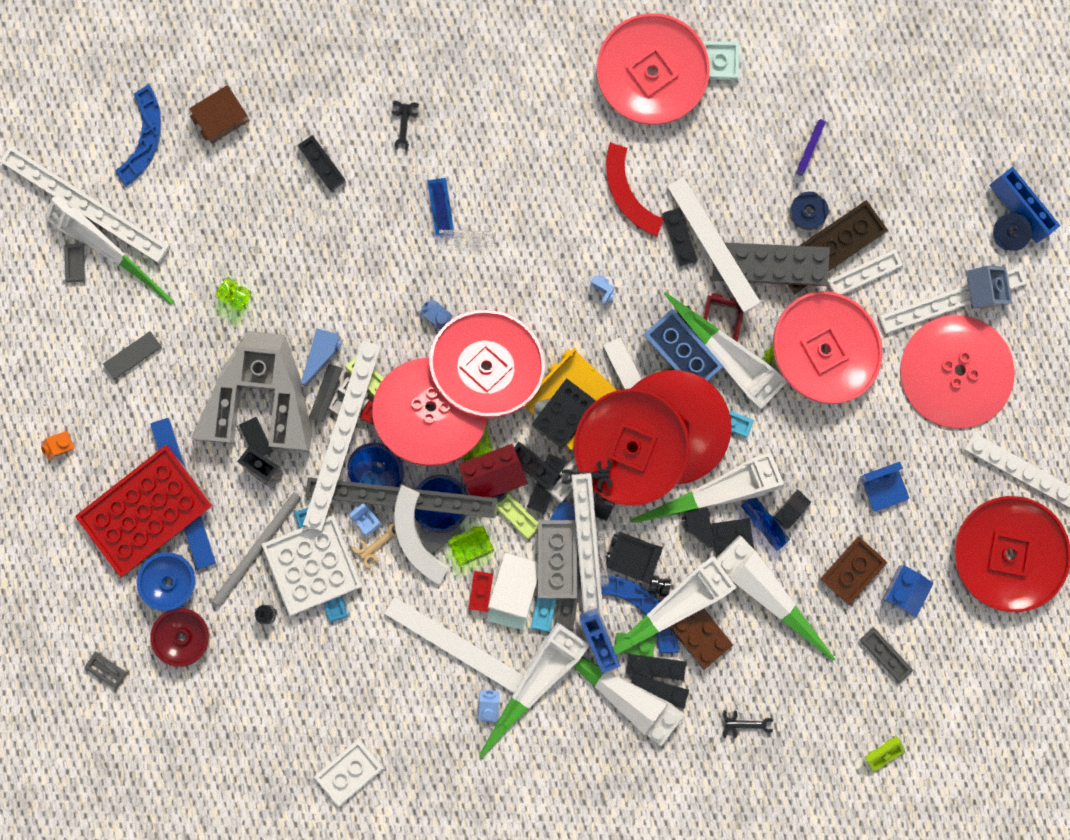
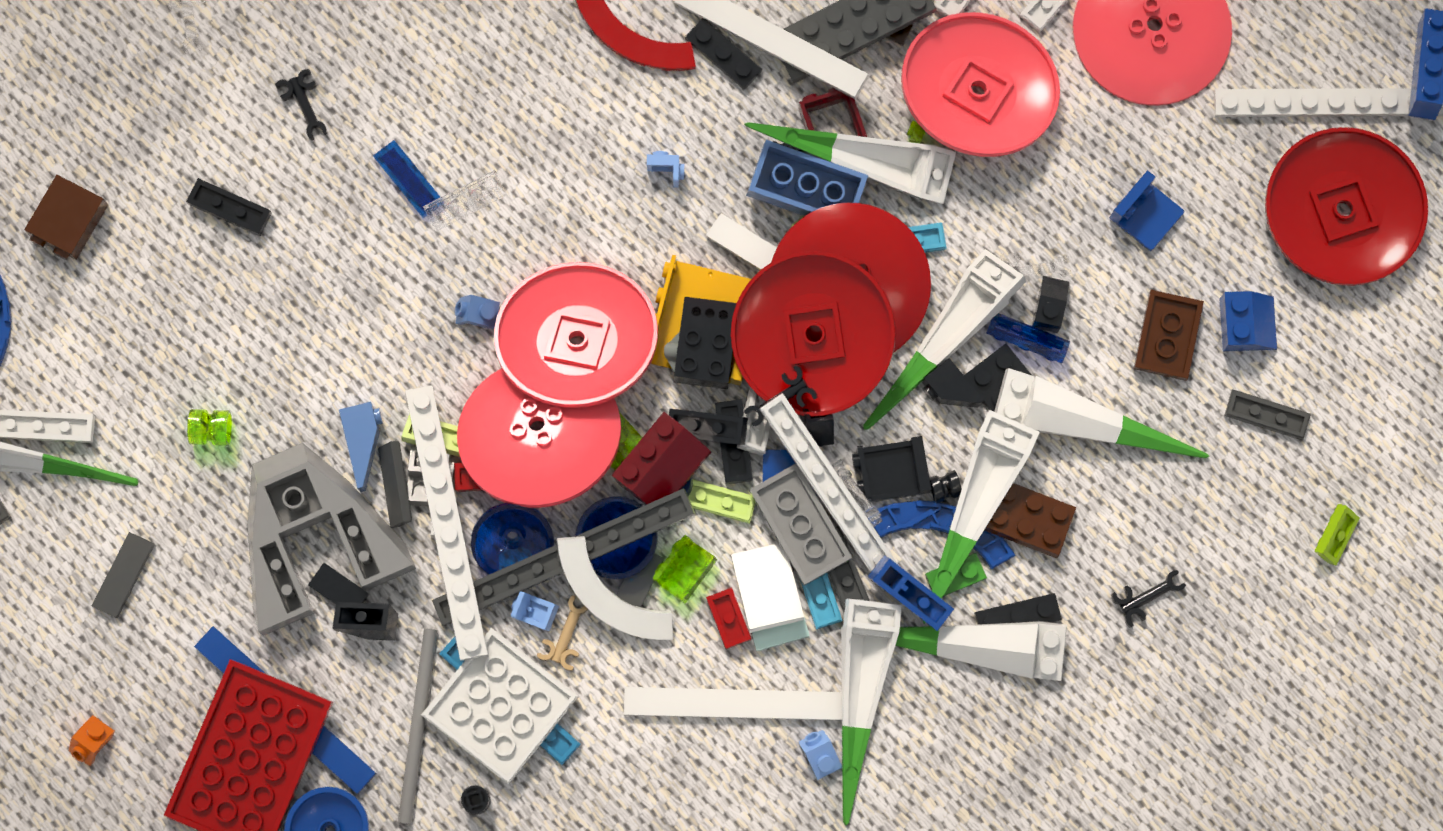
camera: 25 degrees left, 5 degrees down
(656, 667) = (998, 588): black plate -> none

